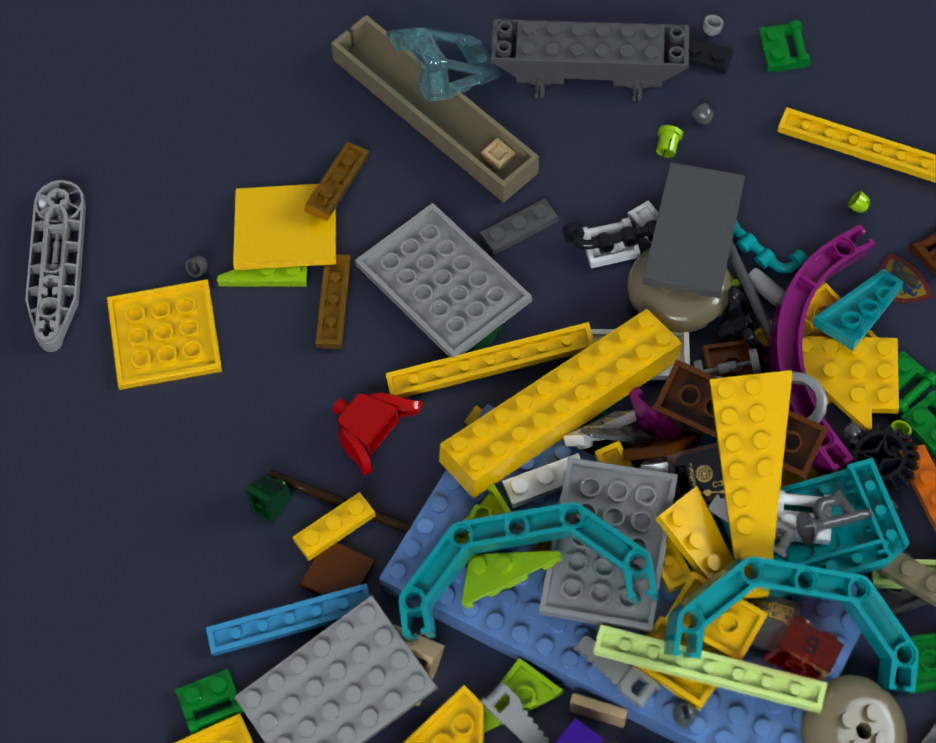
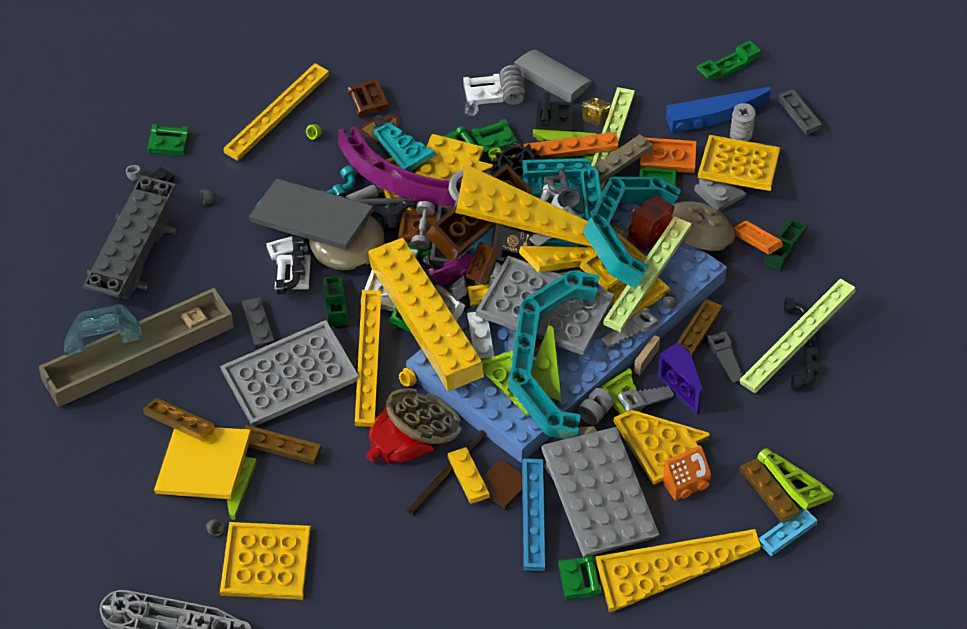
camera: 80 degrees left, 10 degrees down
(268, 497) = (434, 509): dark green slope -> none
(377, 451) = (423, 416): none -> dark tan brick
(478, 655) = (595, 406): none -> light grey wheel
(577, 301) = (335, 301): none -> dark green slope
(668, 140) = (222, 220): lime bush -> none

